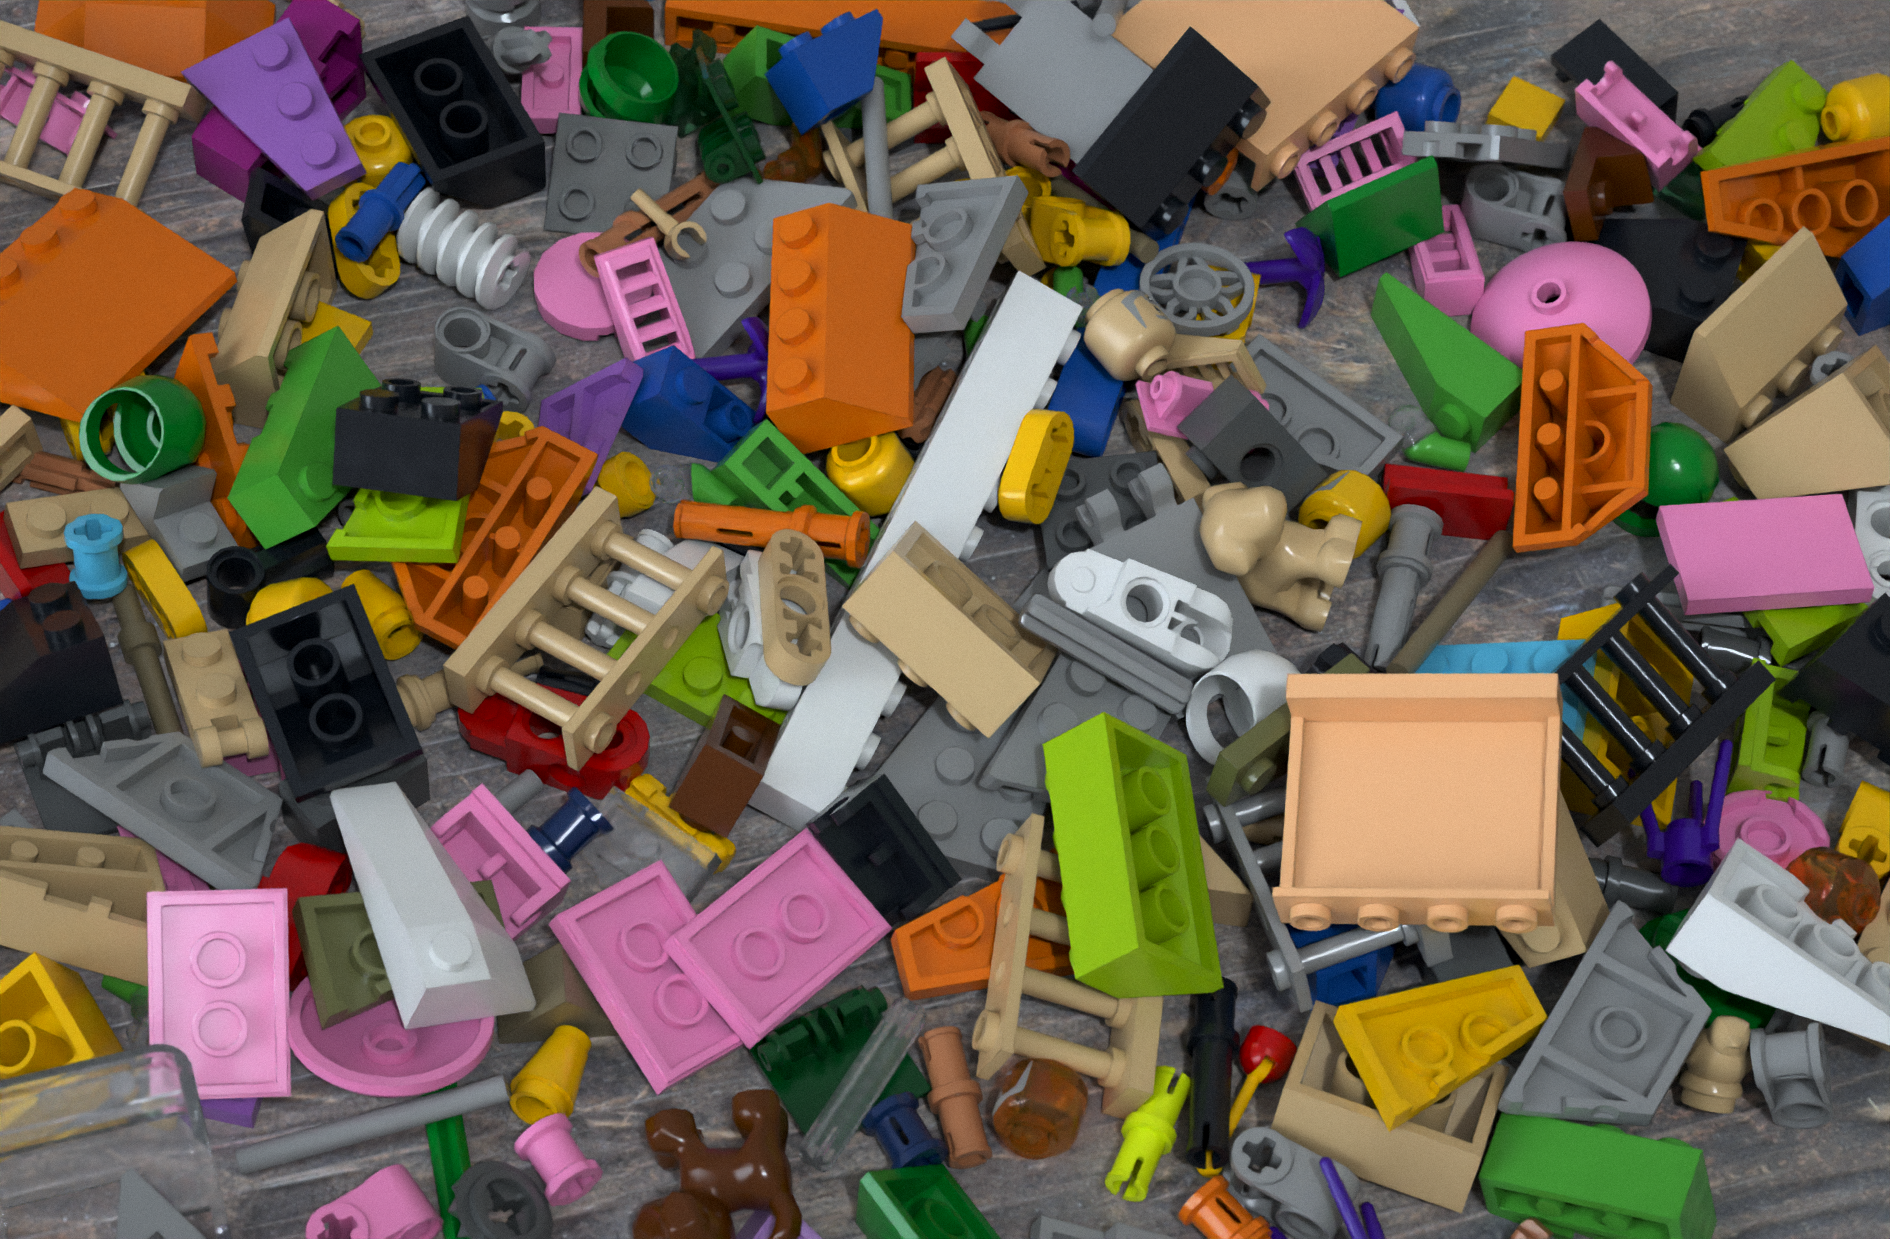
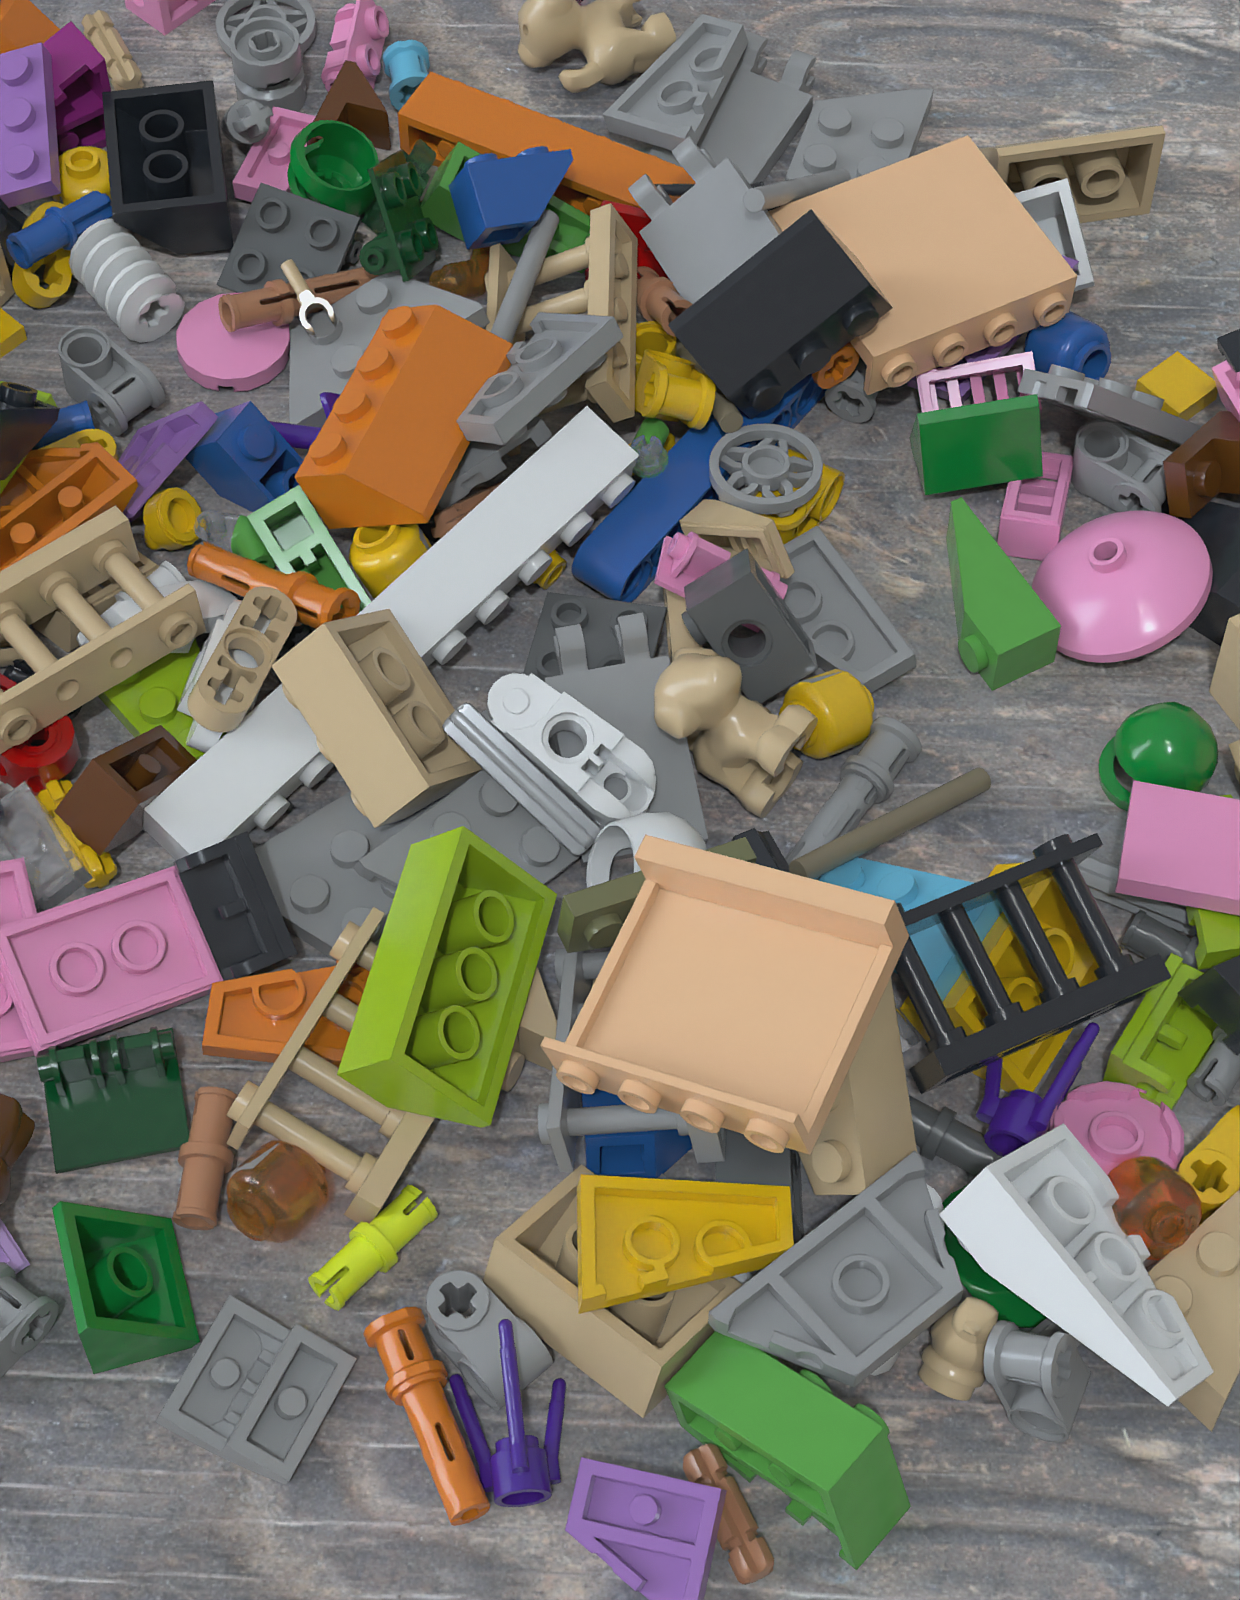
camera: 25 degrees right, 0 degrees up
(663, 300) = (256, 314): bright pink slope -> none
(862, 1084) = (120, 1120): clear axle -> none
(898, 1114) = (139, 1176): dark blue bush -> none
(1036, 466) = (537, 590): yellow beam -> none
(1129, 335) = (675, 491): tan head -> none
(1213, 1048) = (470, 1184): black pin -> none
(1263, 1059) = (509, 1204): red hinge -> none
(1305, 269) = (893, 474): dark purple plant -> none
(1424, 443) = (938, 665): arm -> none
(1466, 502) = (947, 728): red panel -> none
(1578, 438) = (1076, 696): orange wedge -> none

